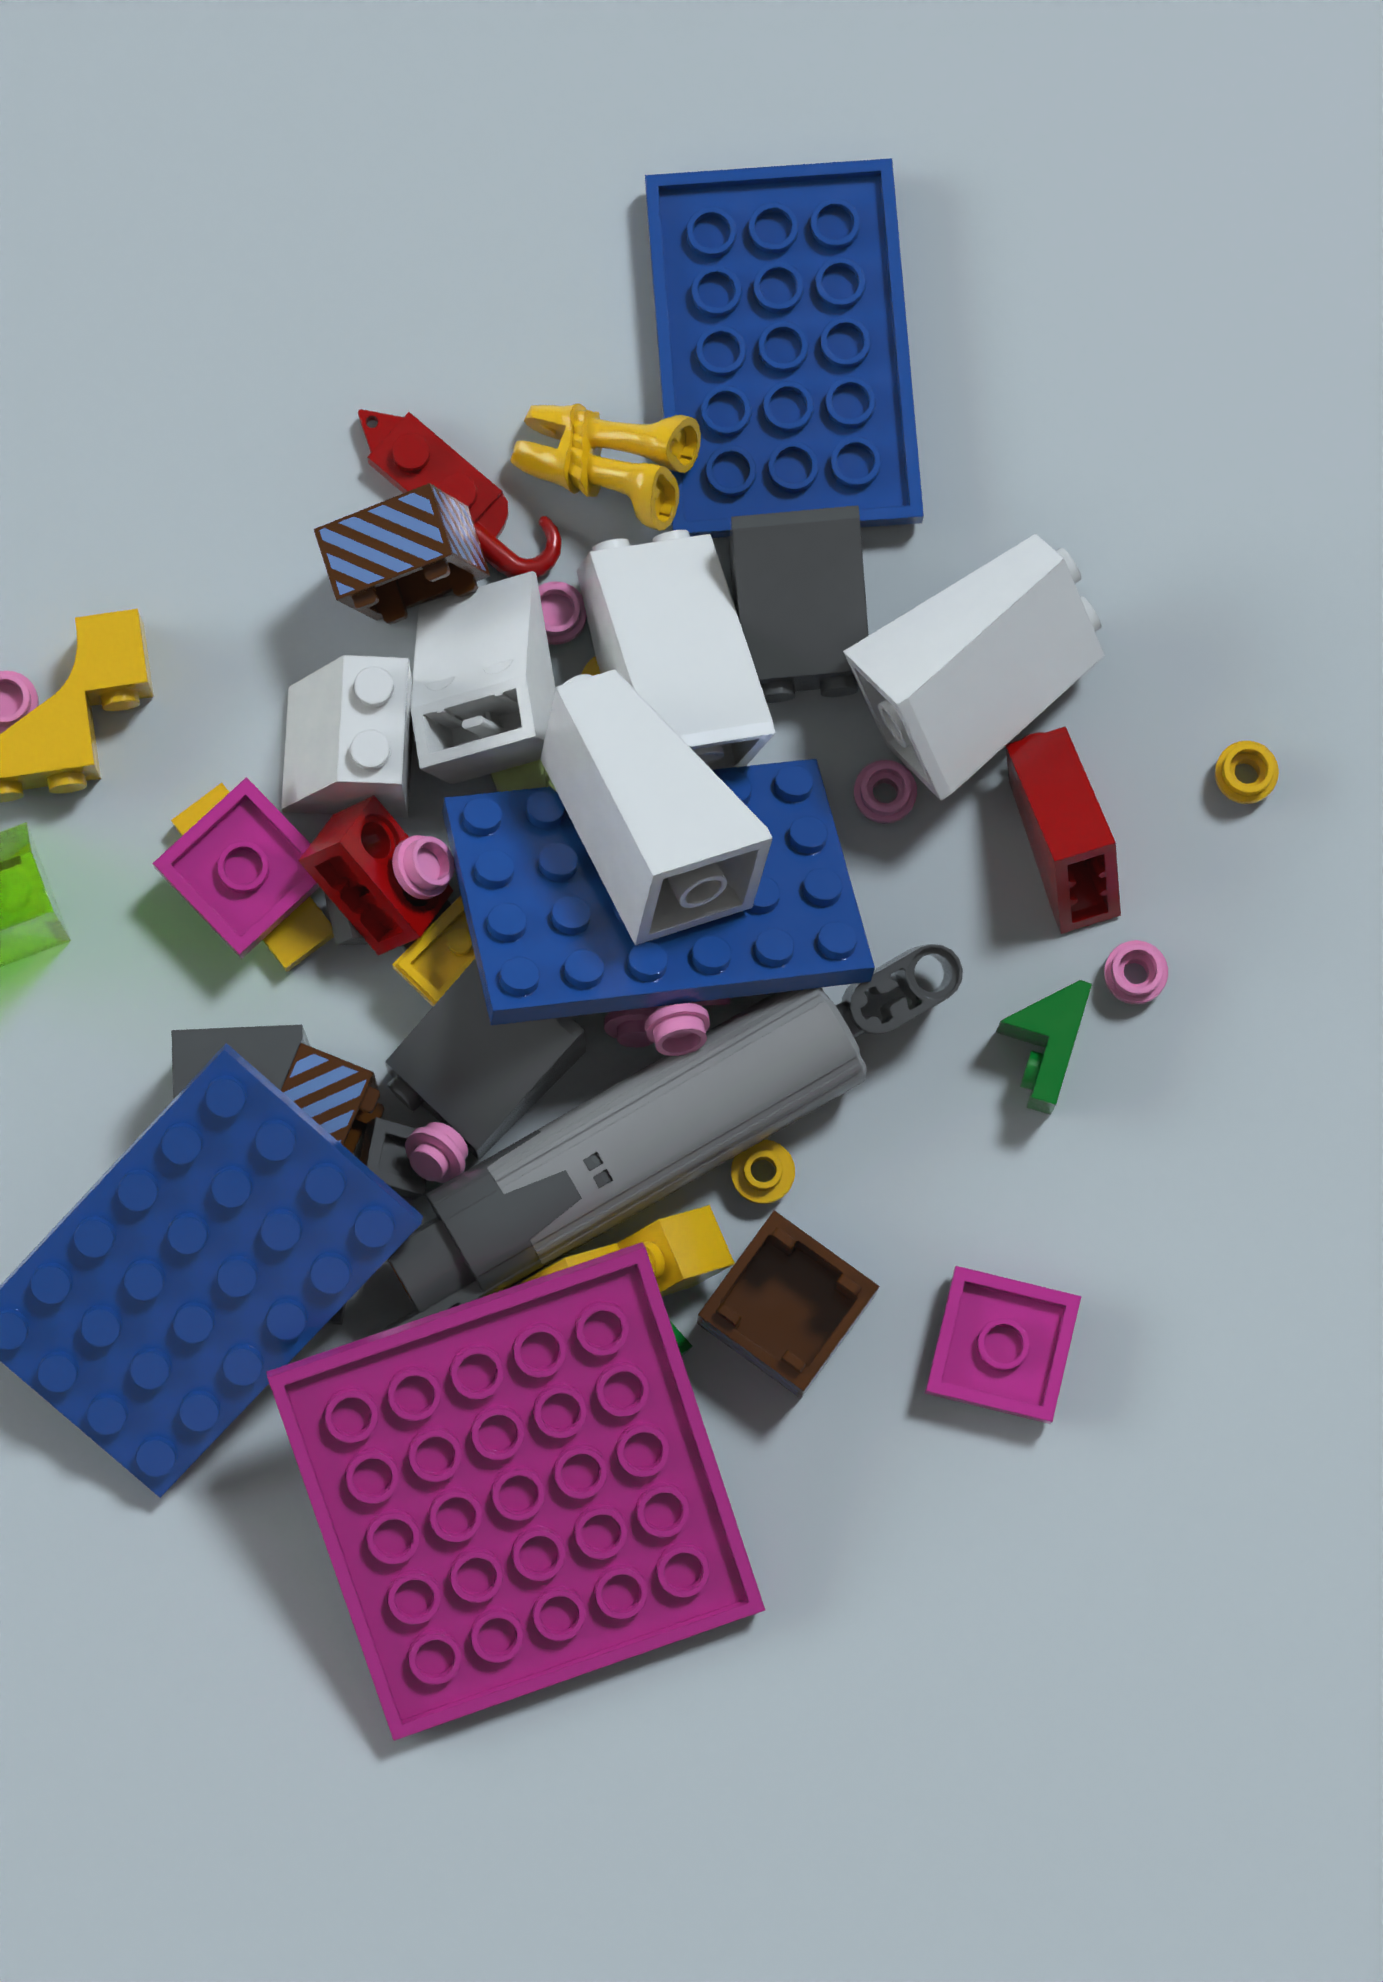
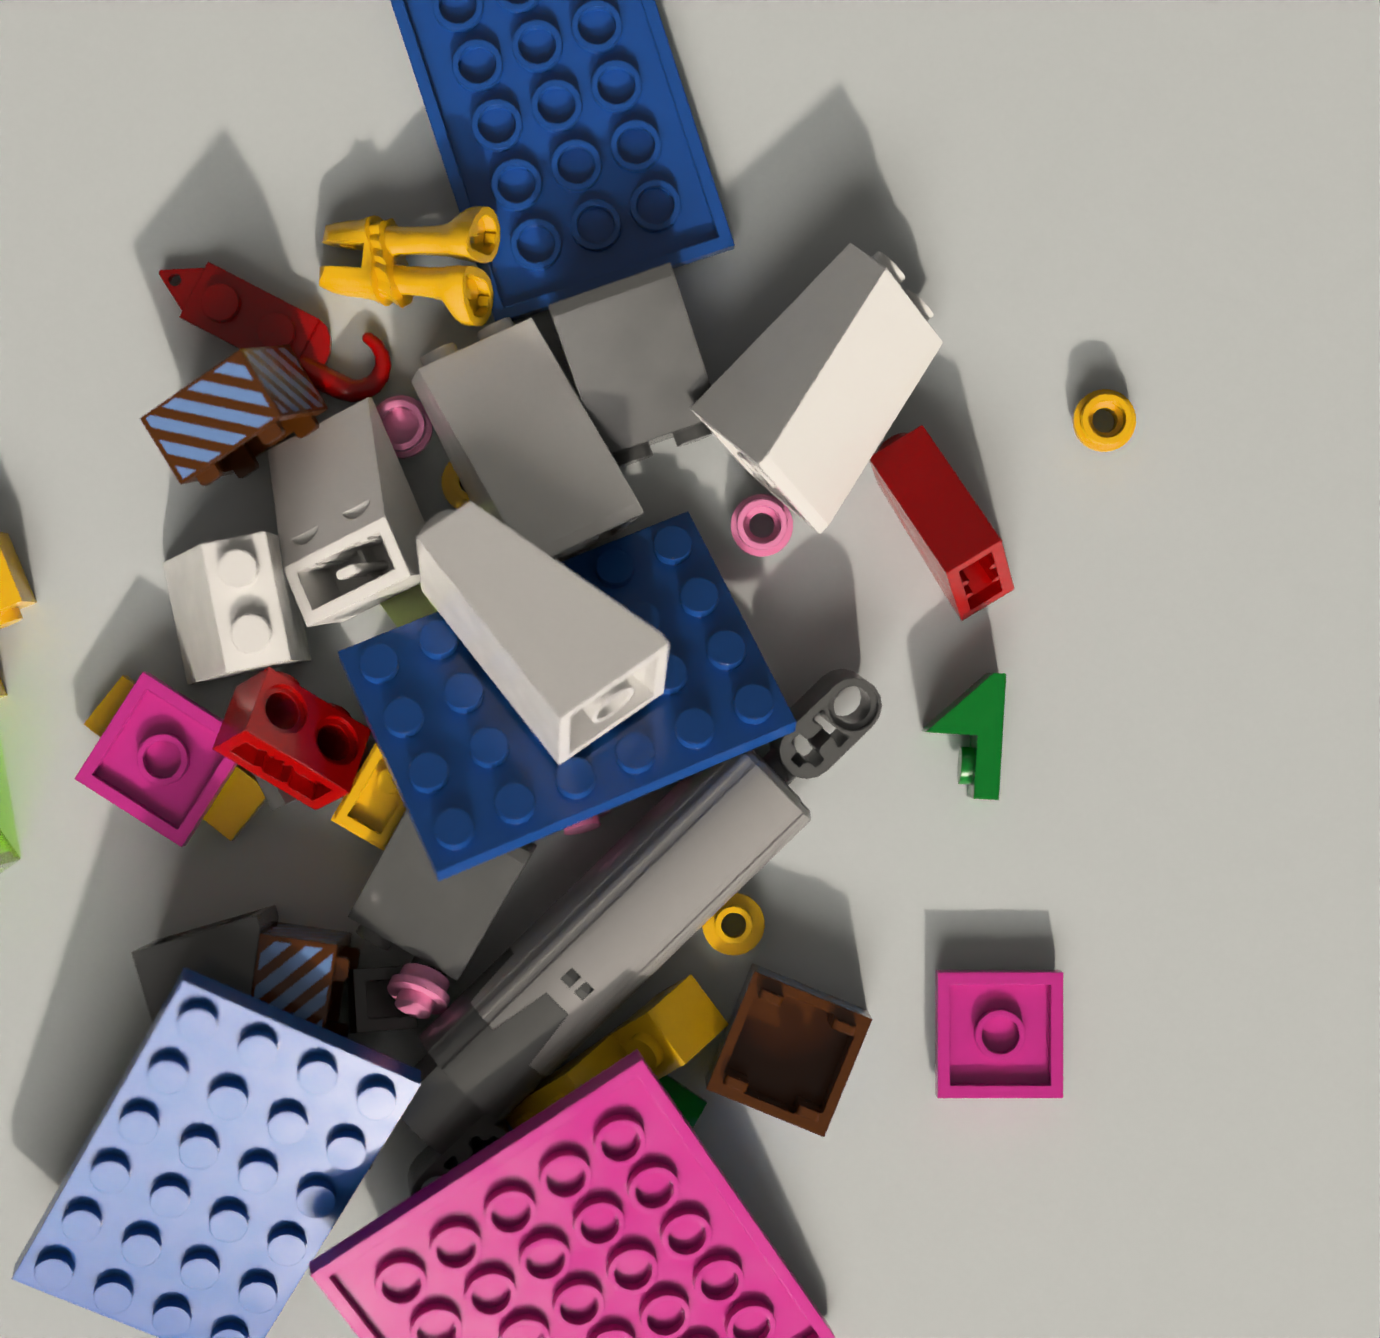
camera: 10 degrees left, 10 degrees up
(423, 866) = (333, 725): bright pink plate -> none
(678, 1028) = (620, 827): bright pink plate -> none
(1144, 955) = (1061, 637): bright pink plate -> none

